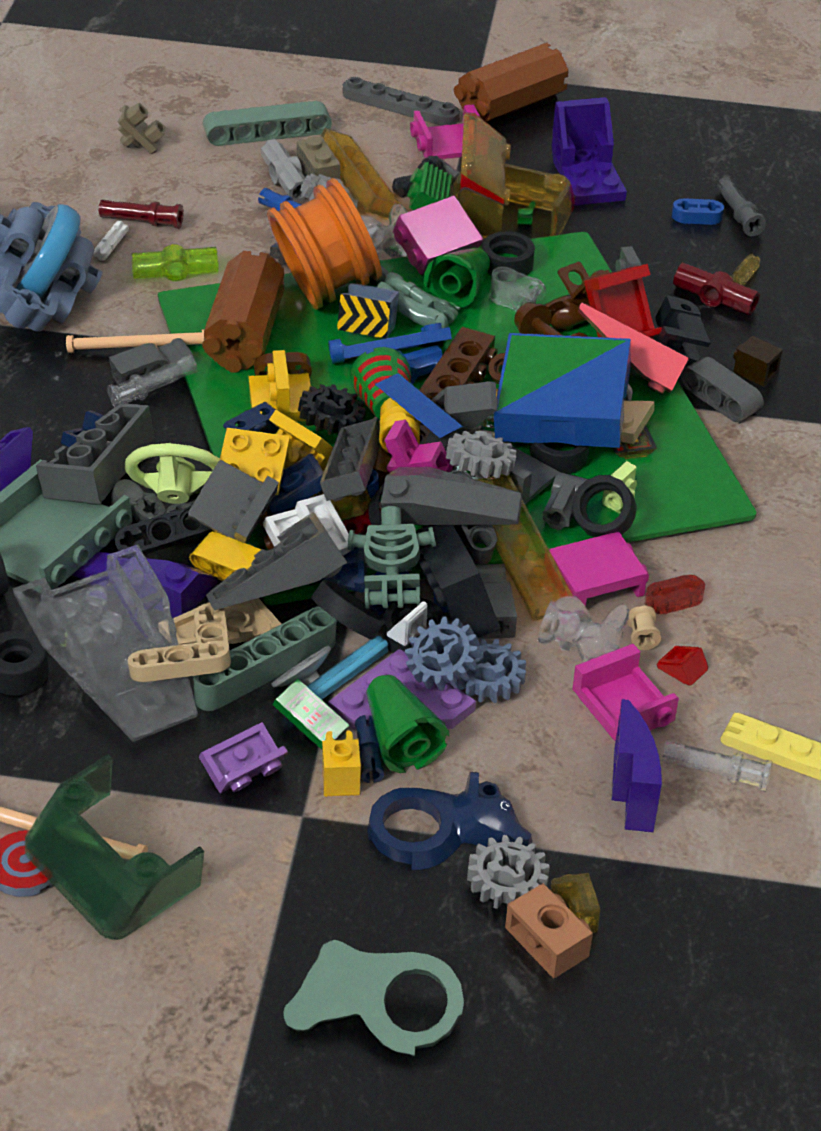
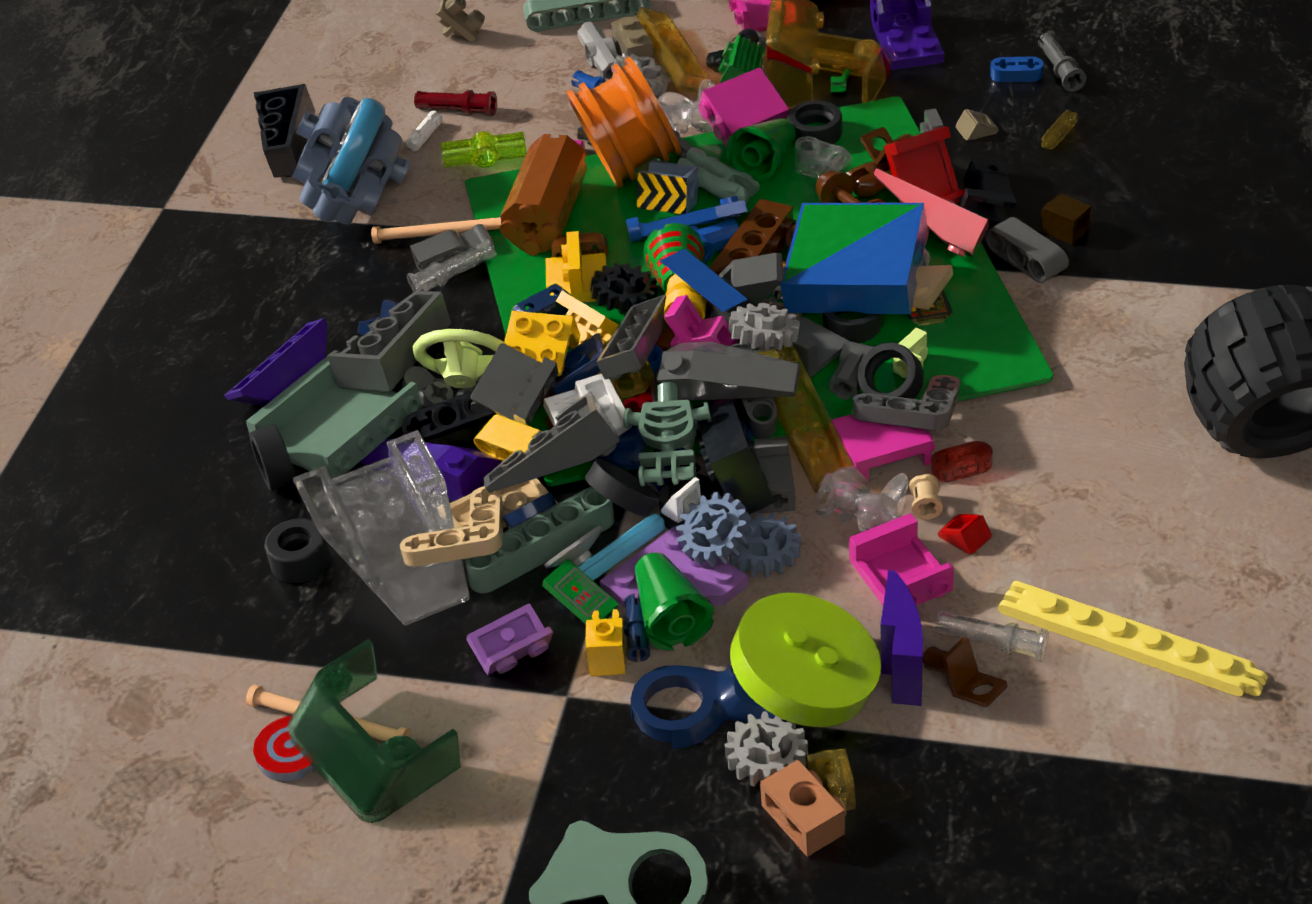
camera: 10 degrees right, 0 degrees up
(255, 629) = (529, 510): none -> dark blue piece
(542, 784) = (805, 659): none -> lime brick
(644, 546) = (929, 413): none -> dark grey beam
(661, 264) = (975, 125): none -> dark tan slope
(693, 802) = (963, 672): none -> reddish brown bracket
(716, 288) = (1029, 147): dark red piece -> none

